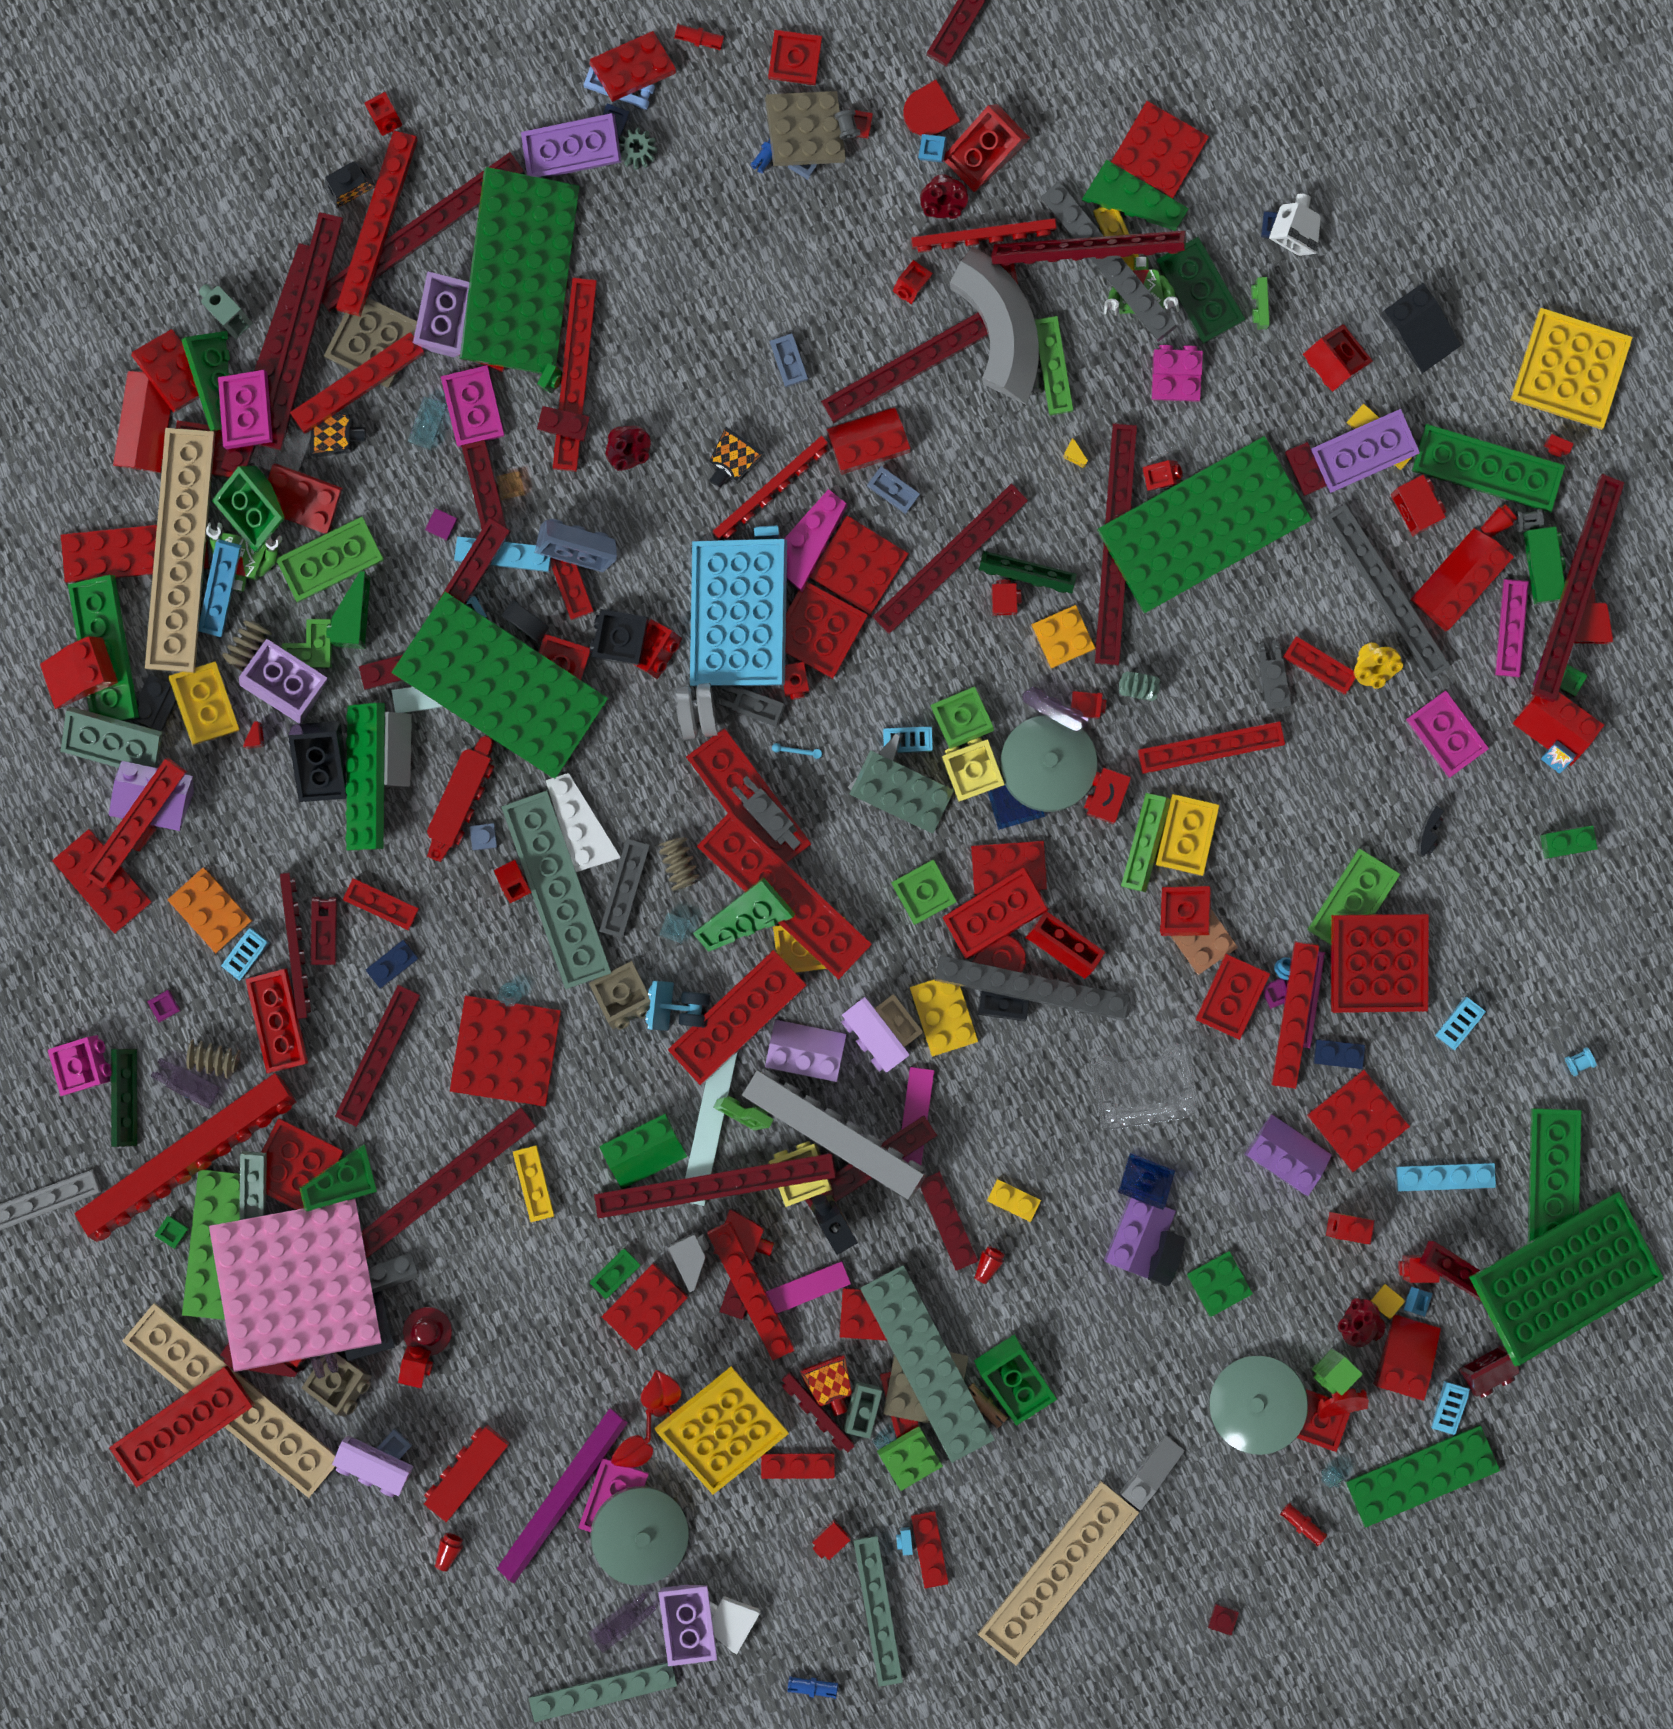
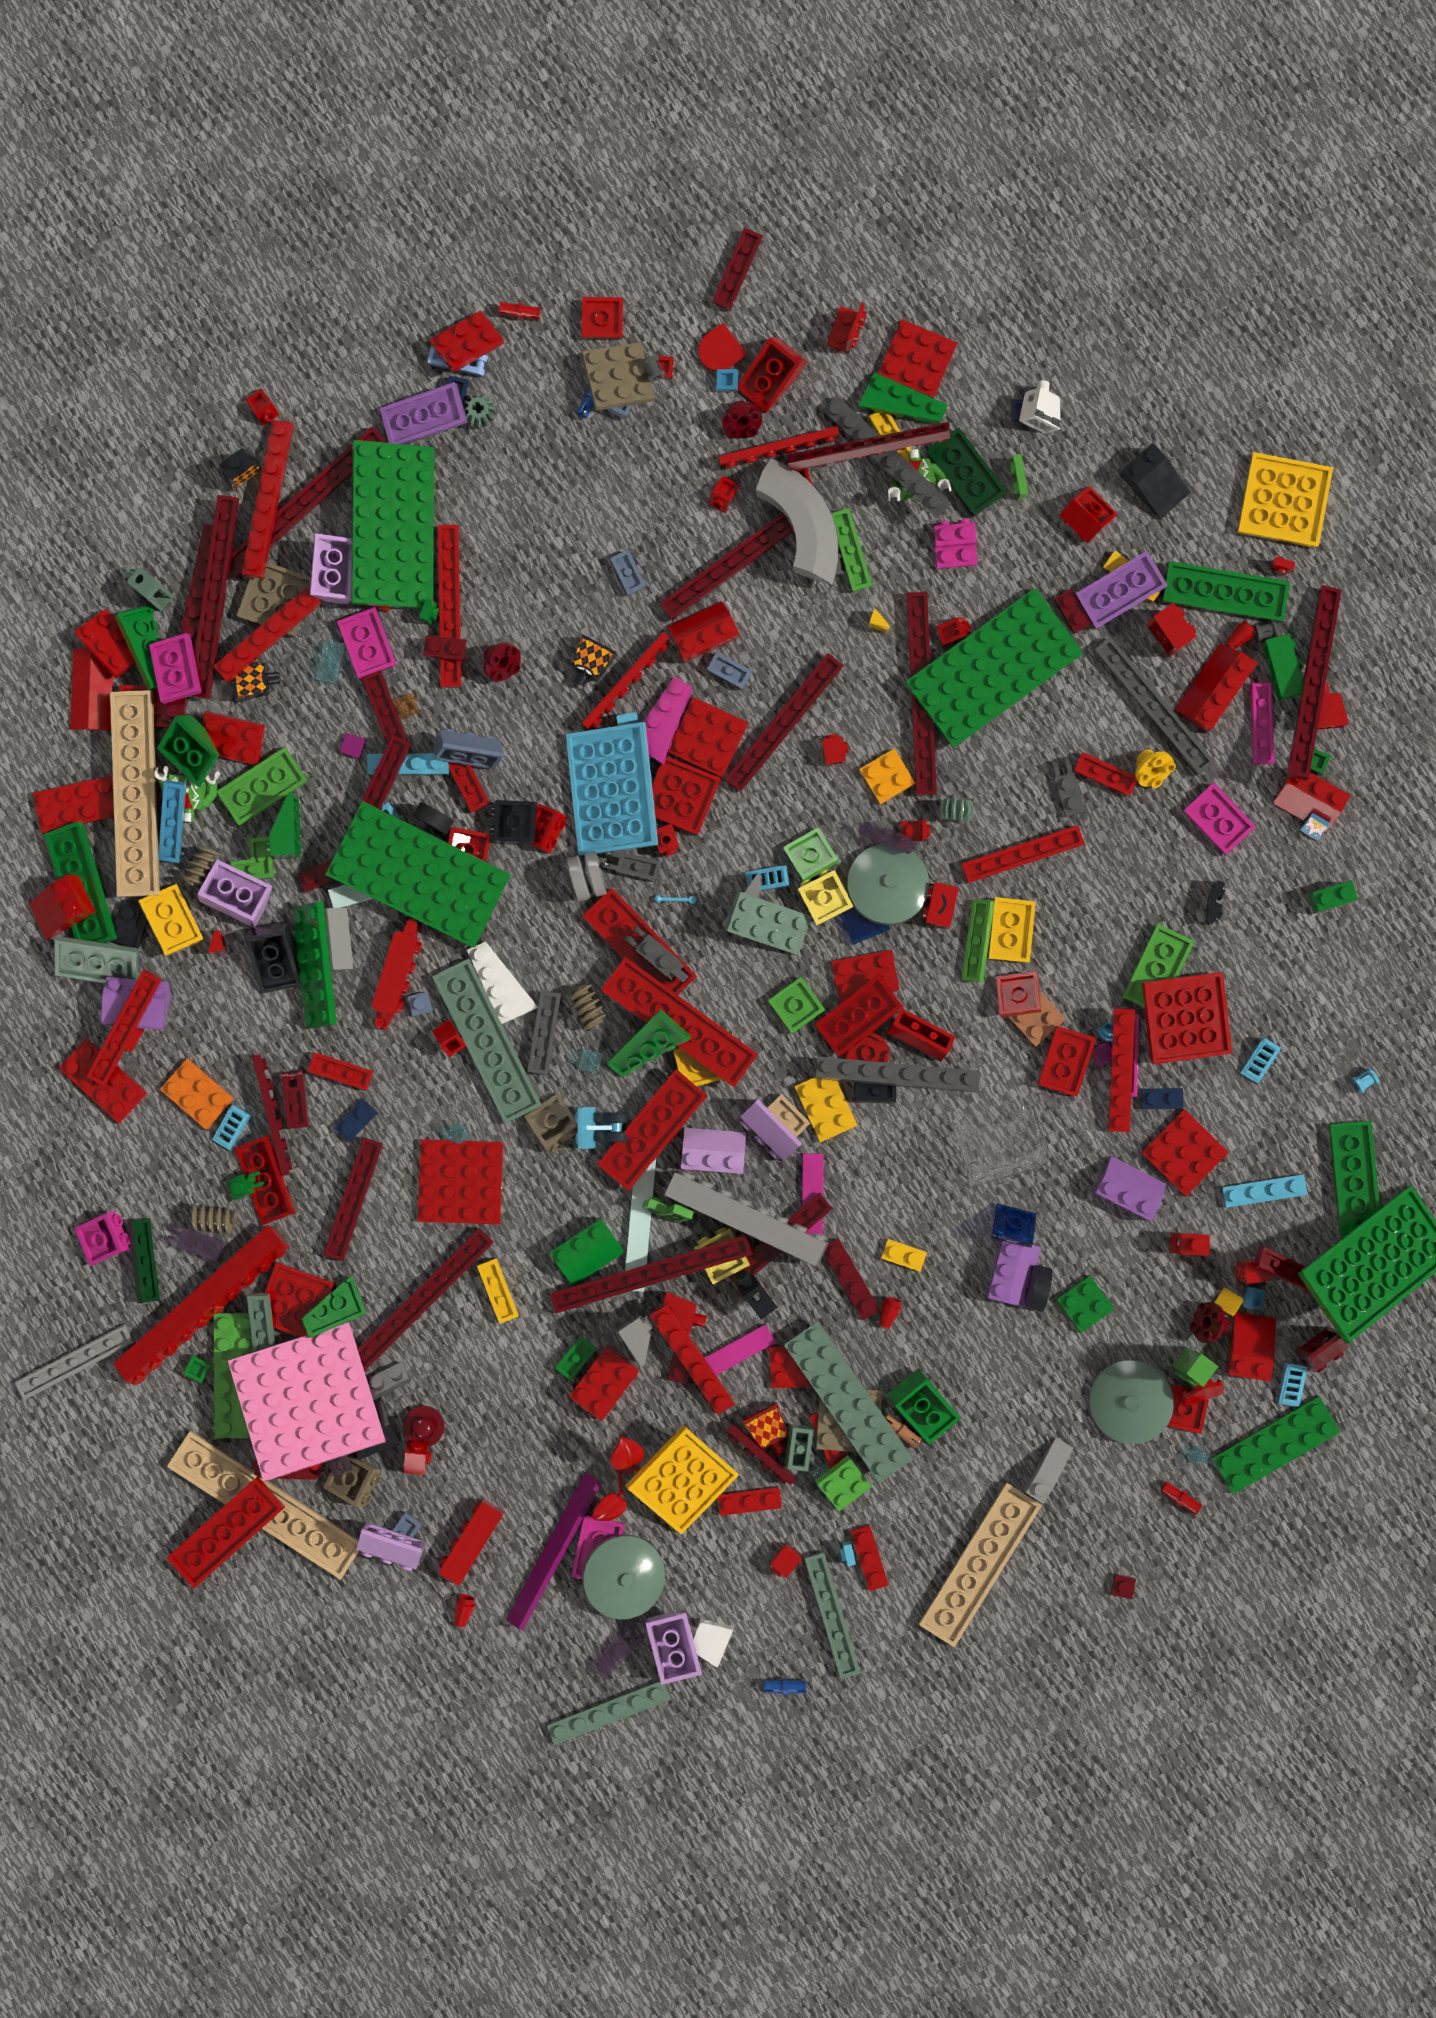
camera: 10 degrees left, 0 degrees up
(164, 1006) = (168, 1179): magenta tile -> none
(251, 1024) = (243, 1185): none -> green plate
(1026, 571) = (850, 725): dark green plate -> none
(1079, 103) = (845, 328): none -> red bracket

